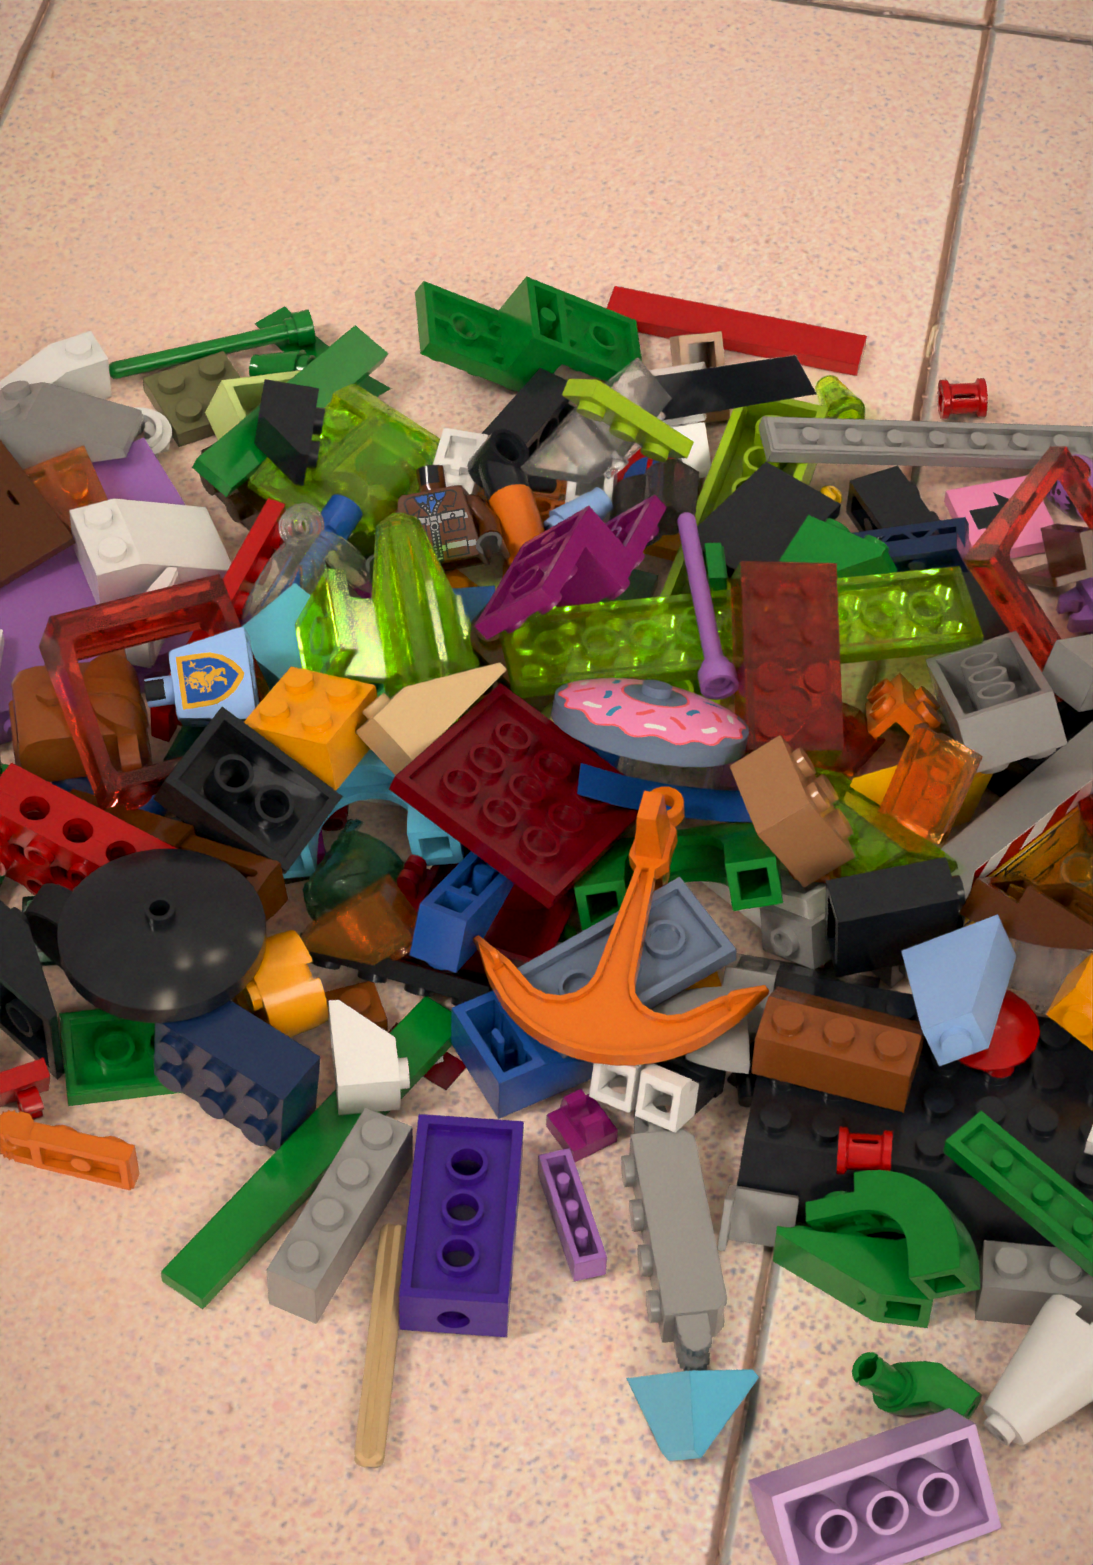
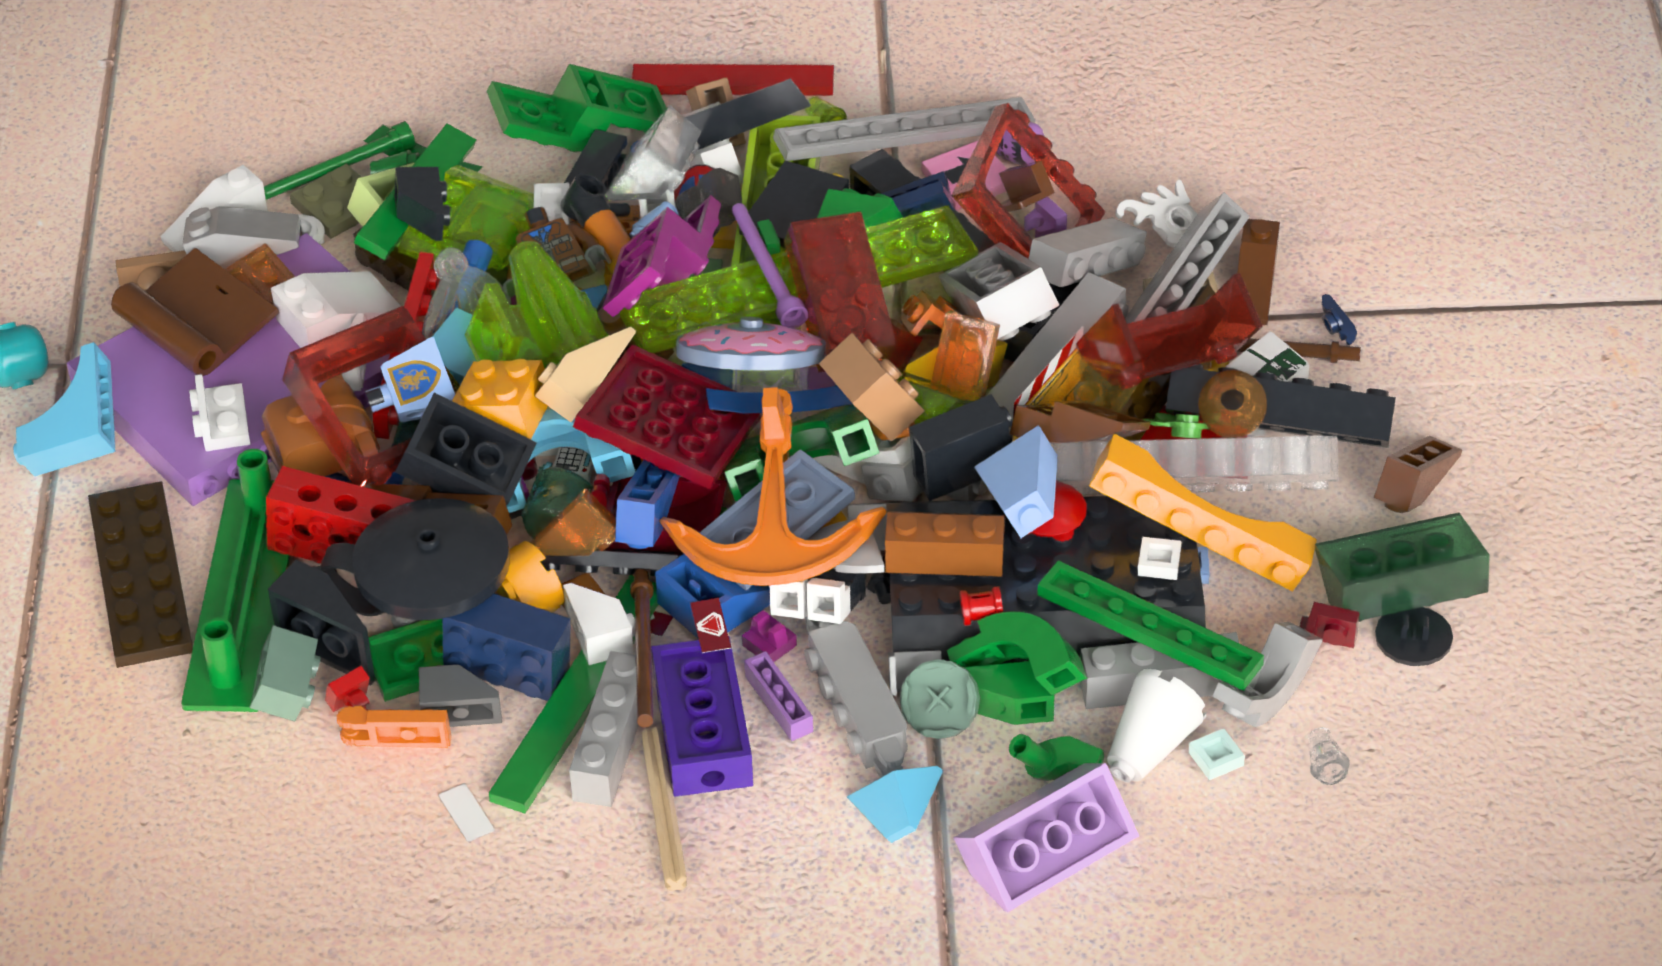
camera: 10 degrees left, 5 degrees down
(128, 1290) = (466, 812): none -> white sticker
(157, 1123) = (460, 693): none -> dark grey slope
(389, 825) = (575, 461): none -> white tile
(430, 1026) = (642, 592): none -> reddish brown bar
(502, 1101) = (710, 625): none -> dark red sticker
(627, 419) = (679, 143): lime plate -> none
(780, 1269) = (939, 699): none -> sand green tile
(975, 401) = (917, 95): red bush -> none

